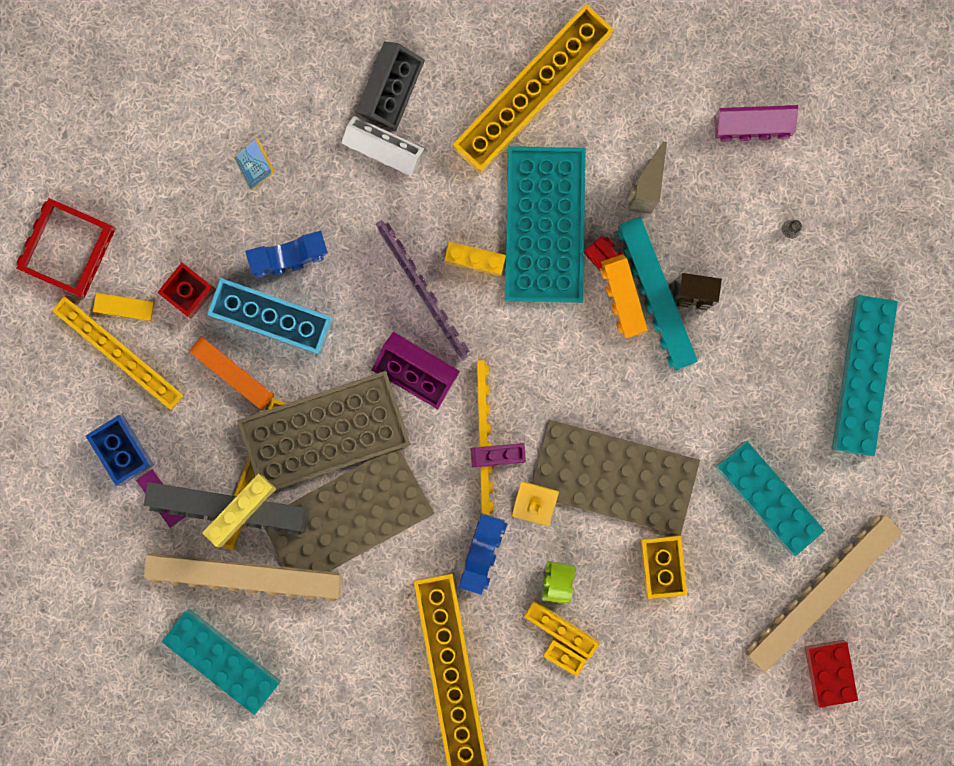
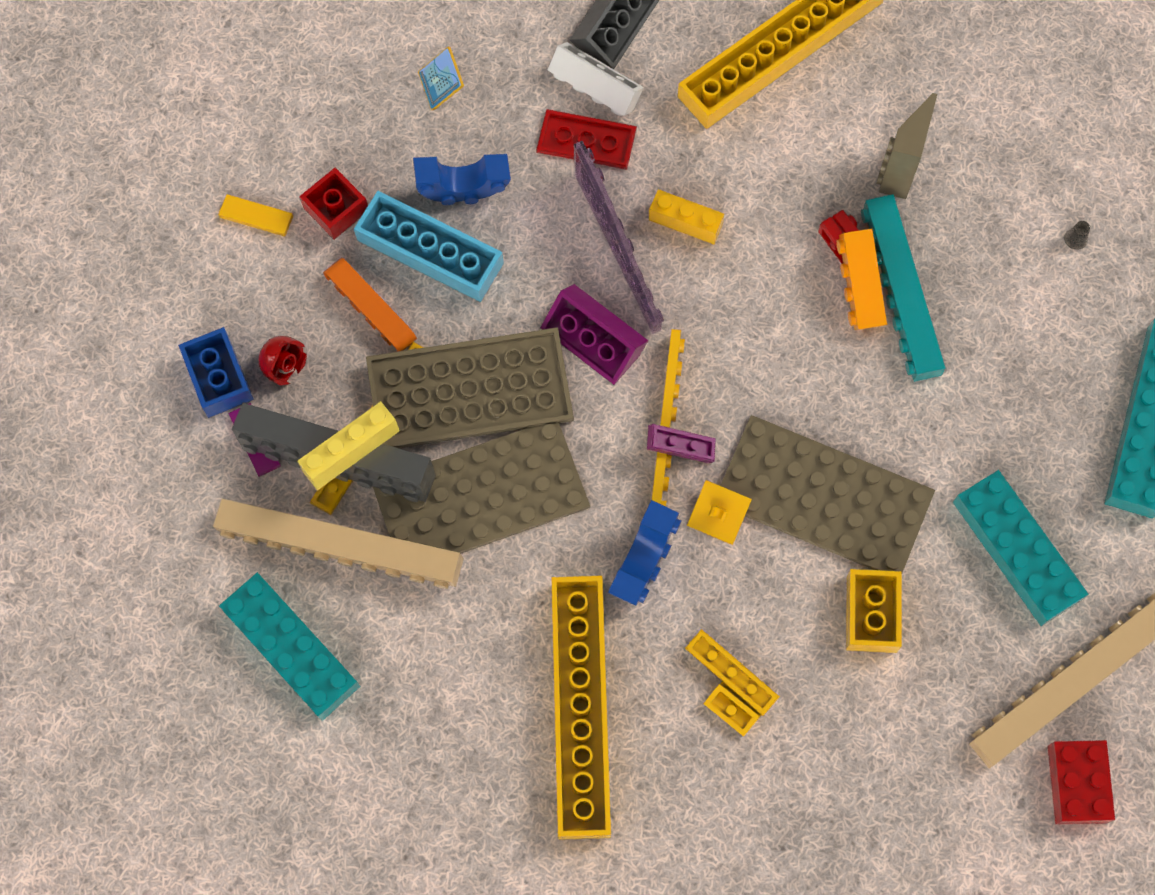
camera: 10 degrees right, 15 degrees down
(93, 262) = (229, 161): red window -> none
(118, 353) = (239, 265): yellow plate -> none
(168, 430) = (282, 354): none -> red cylinder
(383, 198) = (608, 140): none -> red tile
(545, 224) = (776, 193): teal plate -> none
(558, 582) = (735, 609): lime brick -> none
(696, 291) = (953, 282): dark brown brick -> none
(755, 122) = (1044, 110): slope -> none

